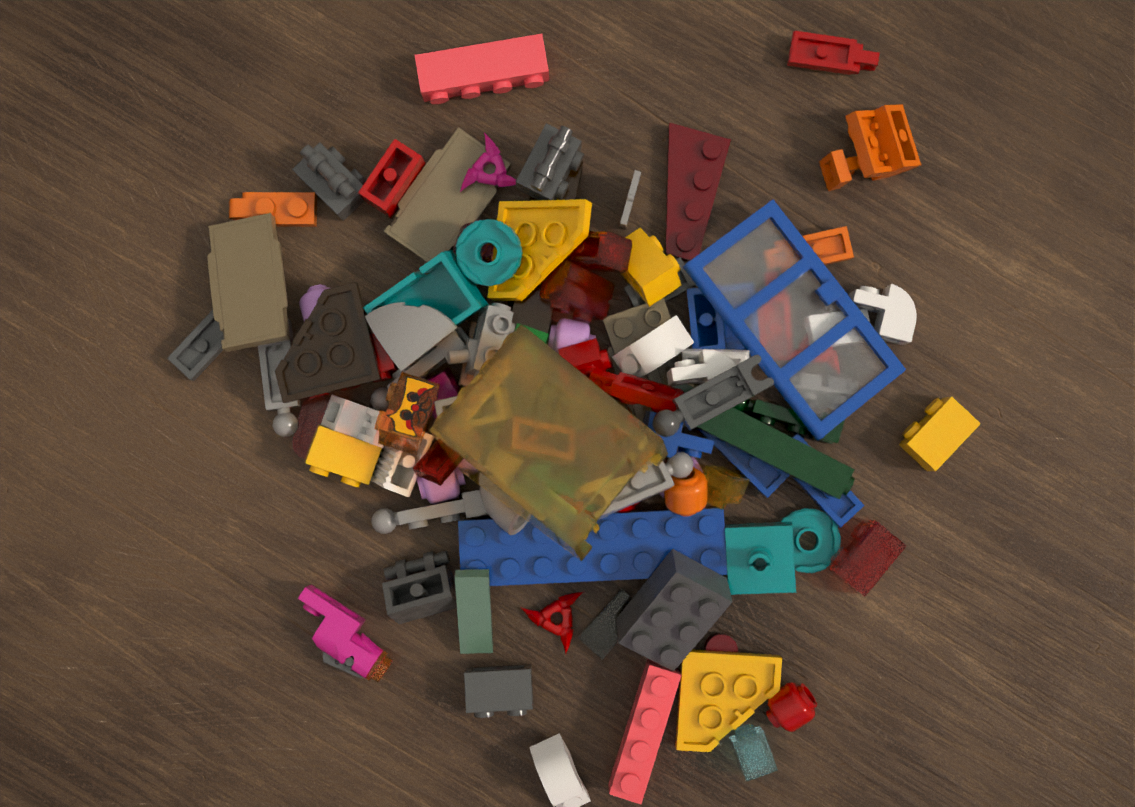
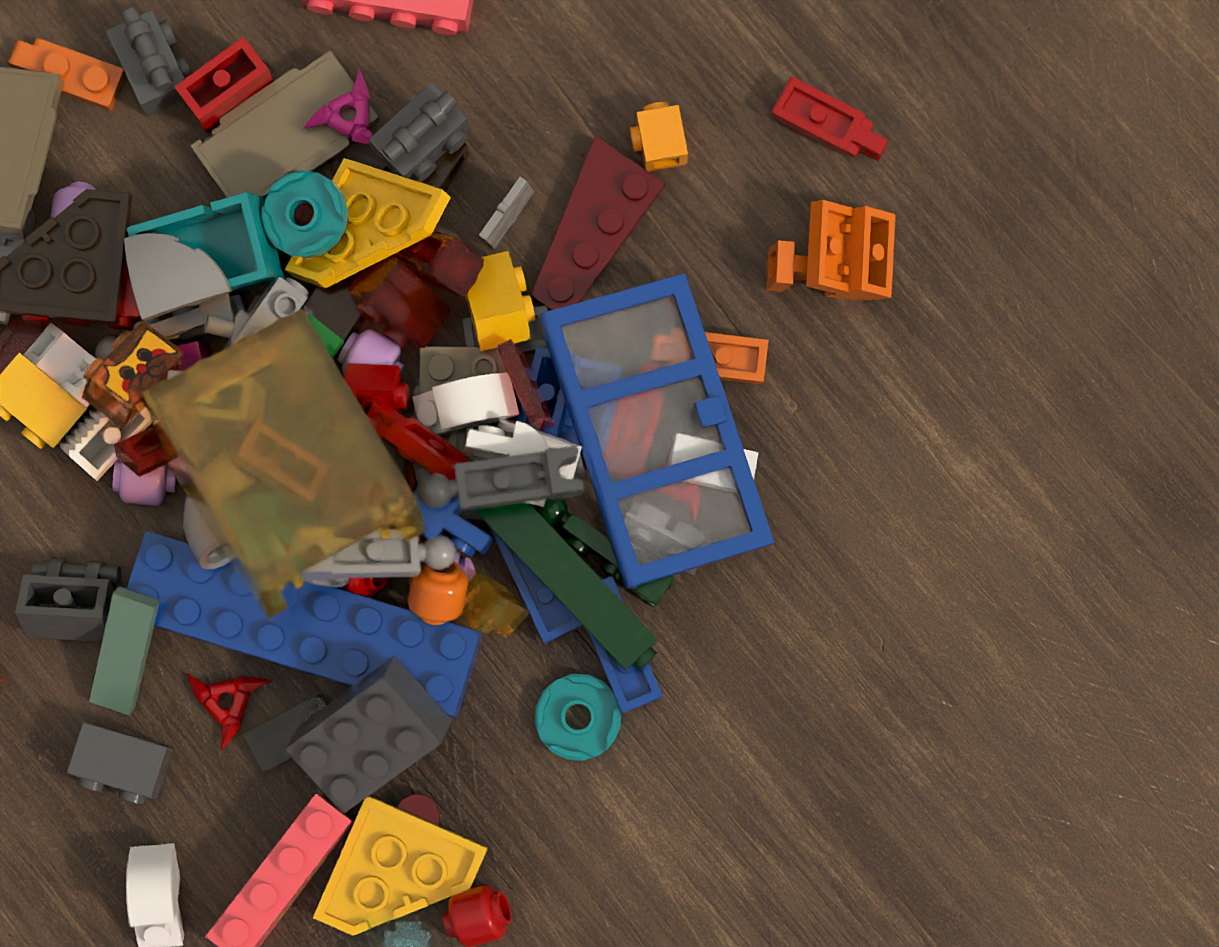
camera: 20 degrees right, 5 degrees down
(385, 520) = (98, 512): light grey plate -> none
(692, 320) = (525, 385): none -> clear red tile
(716, 107) = (660, 136): none -> light orange brick
(760, 558) = (506, 713): teal brick -> none
(866, 556) = (641, 762): clear red brick -> none
(894, 312) = (790, 465): white brick -> none
(938, 433) = (789, 639): yellow brick -> none

